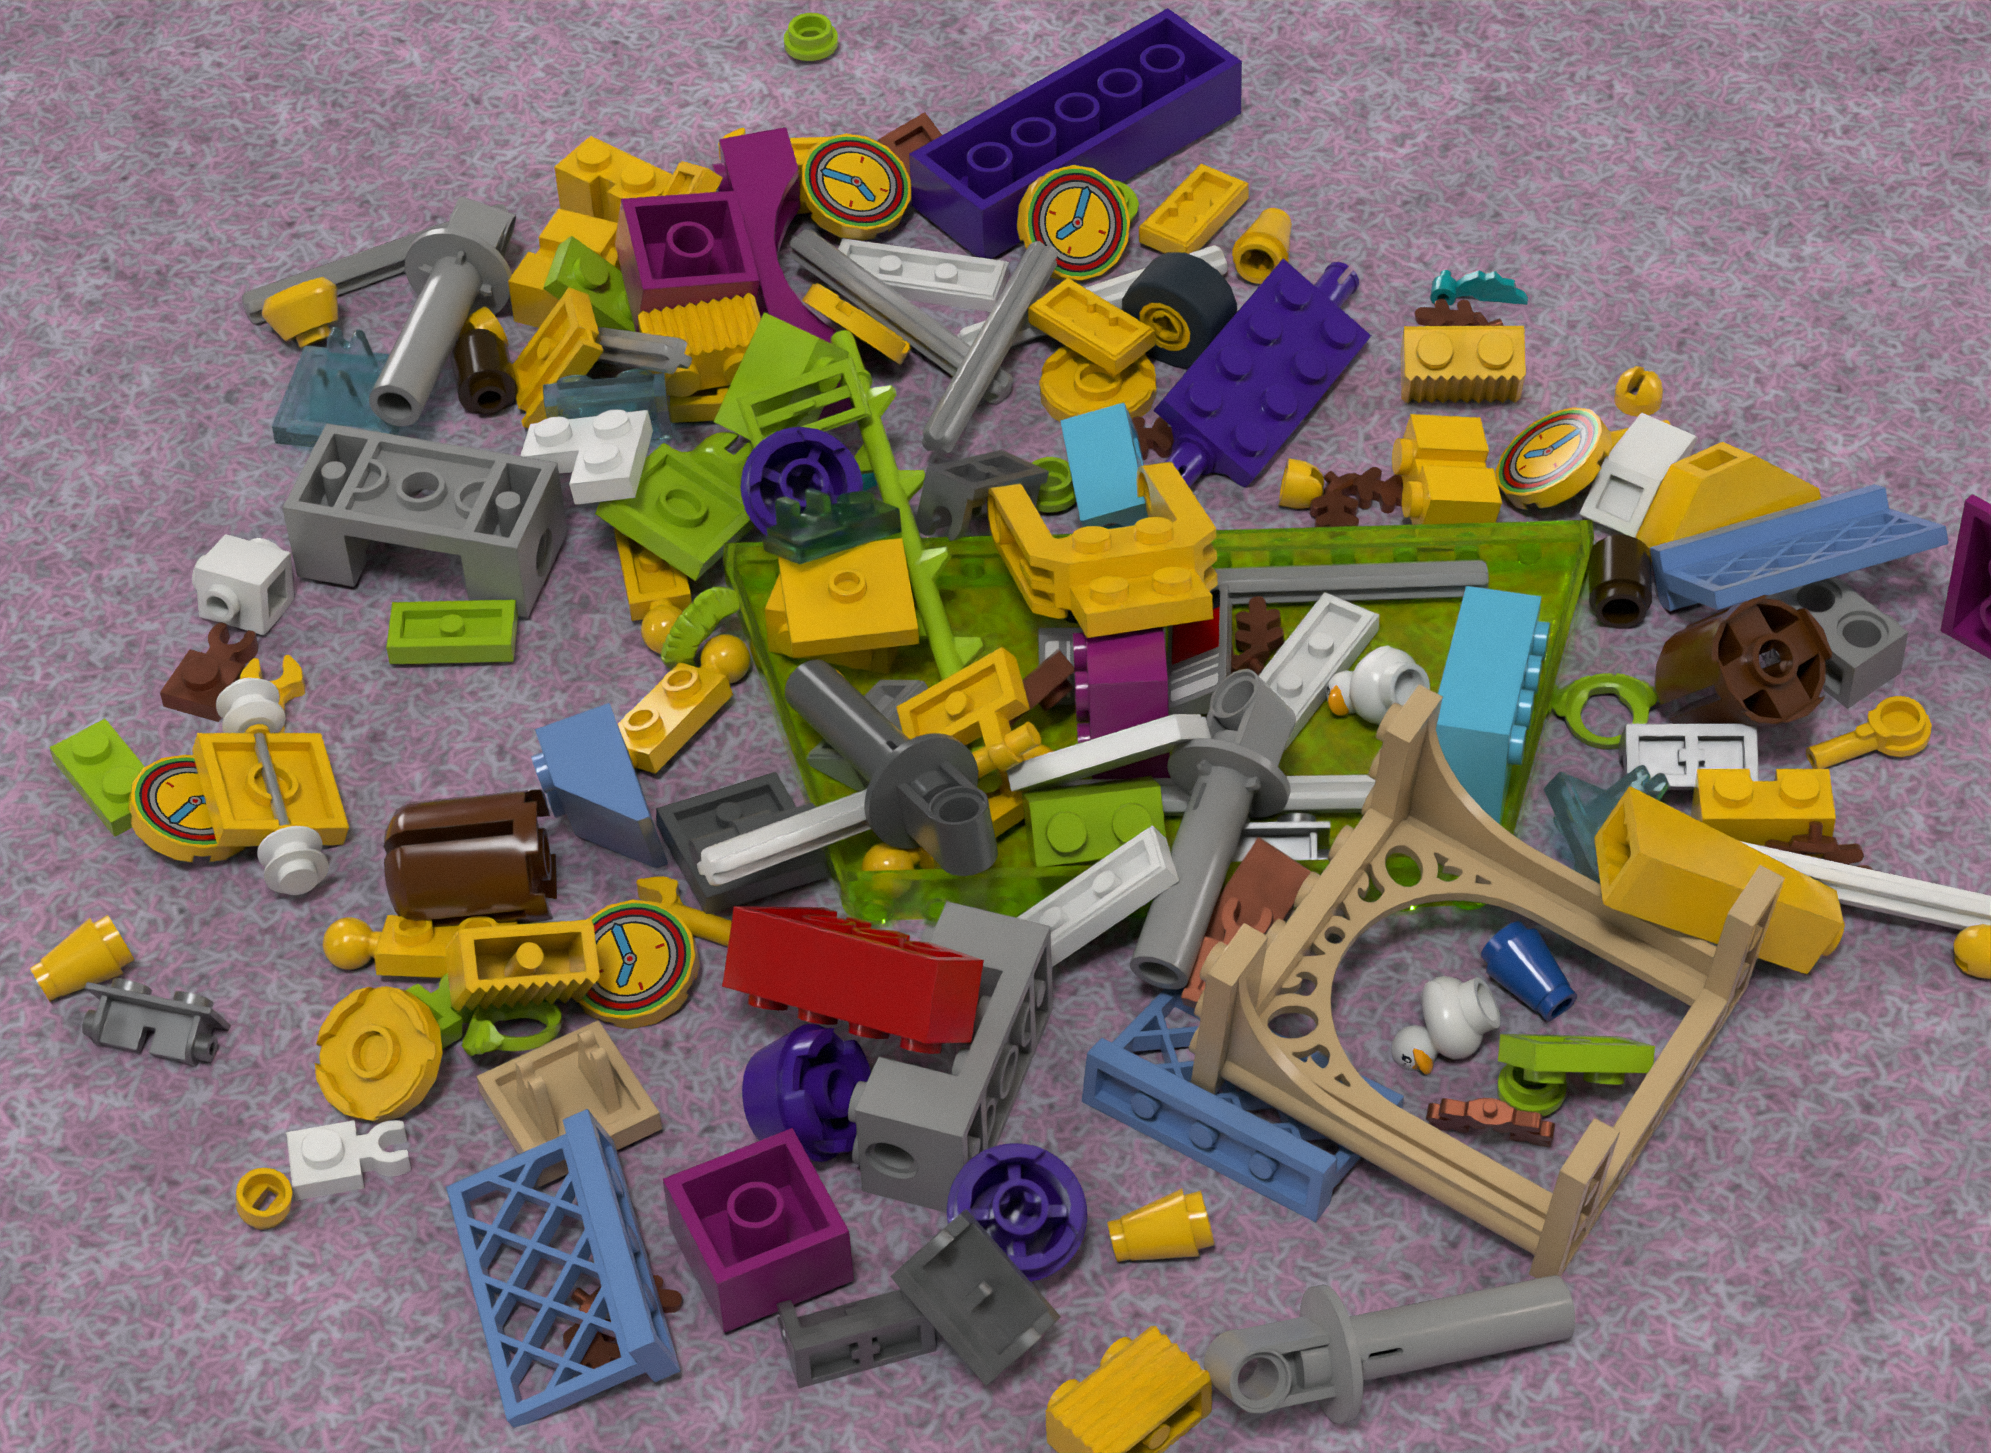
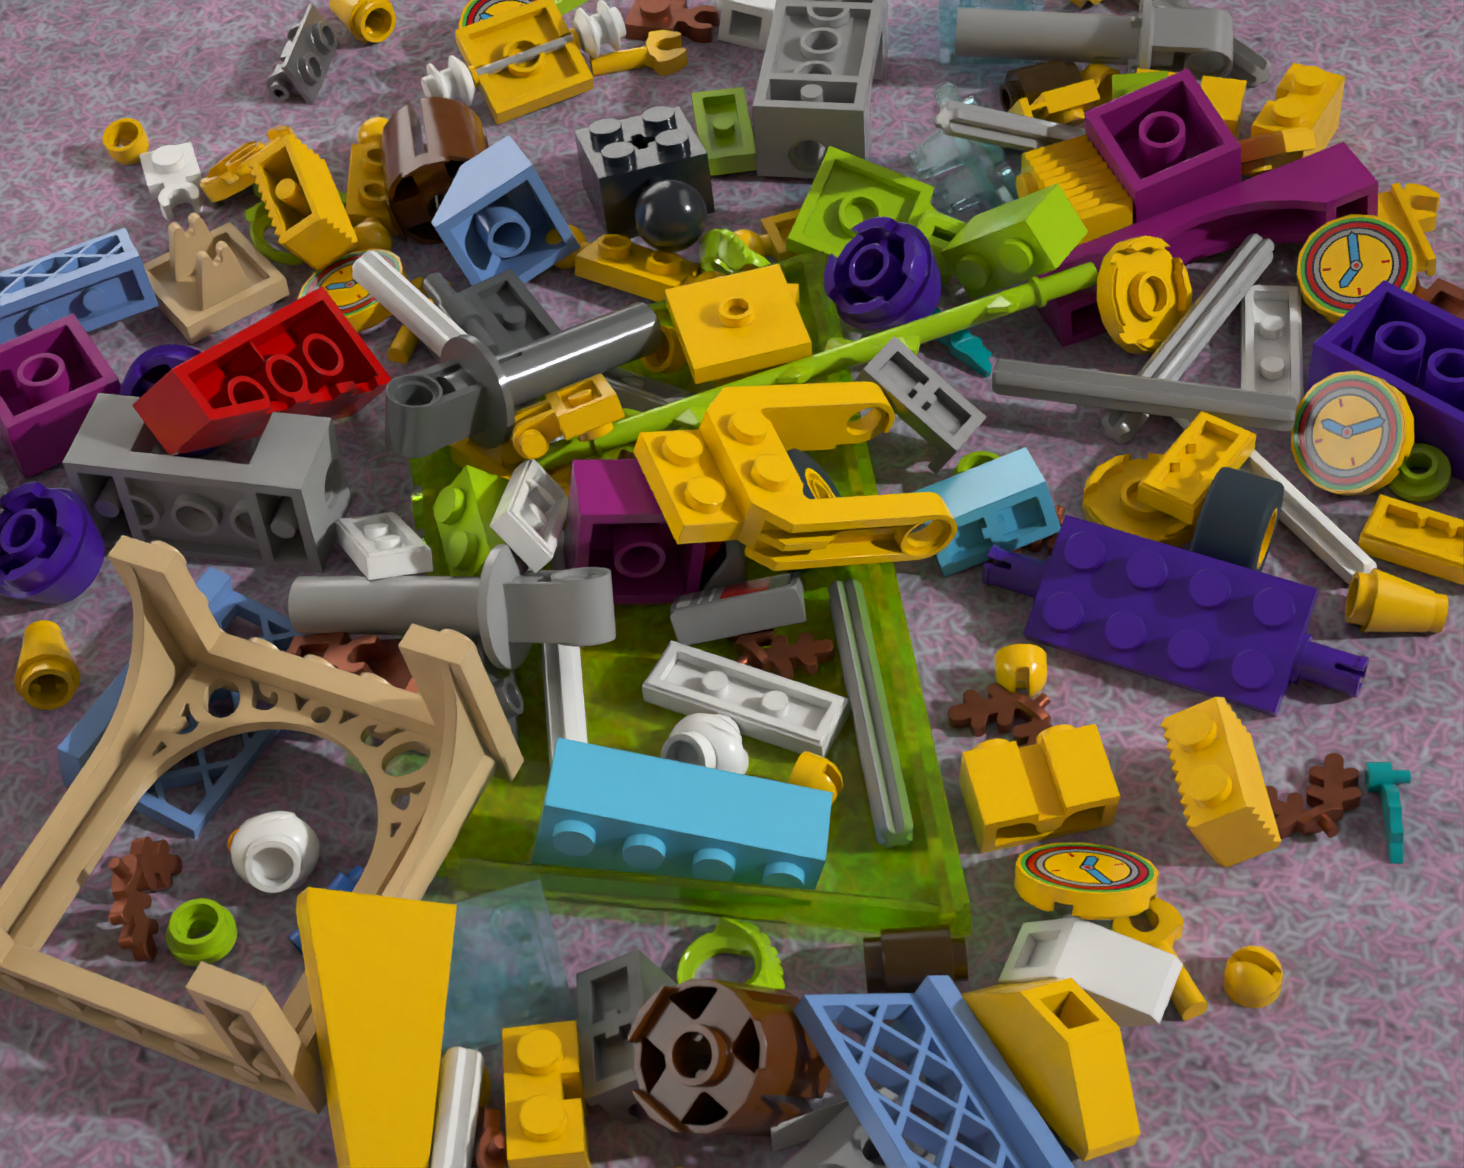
camera: 85 degrees right, 0 degrees up
(544, 670) = (647, 177): none -> black brick
(600, 451) = (892, 136): white plate -> none
(828, 527) = (807, 290): clear green plate -> none
(853, 389) = (983, 262): lime tile -> none
(1412, 620) = (817, 773): none -> yellow hinge
(1598, 1057) = (183, 926): lime plate -> none

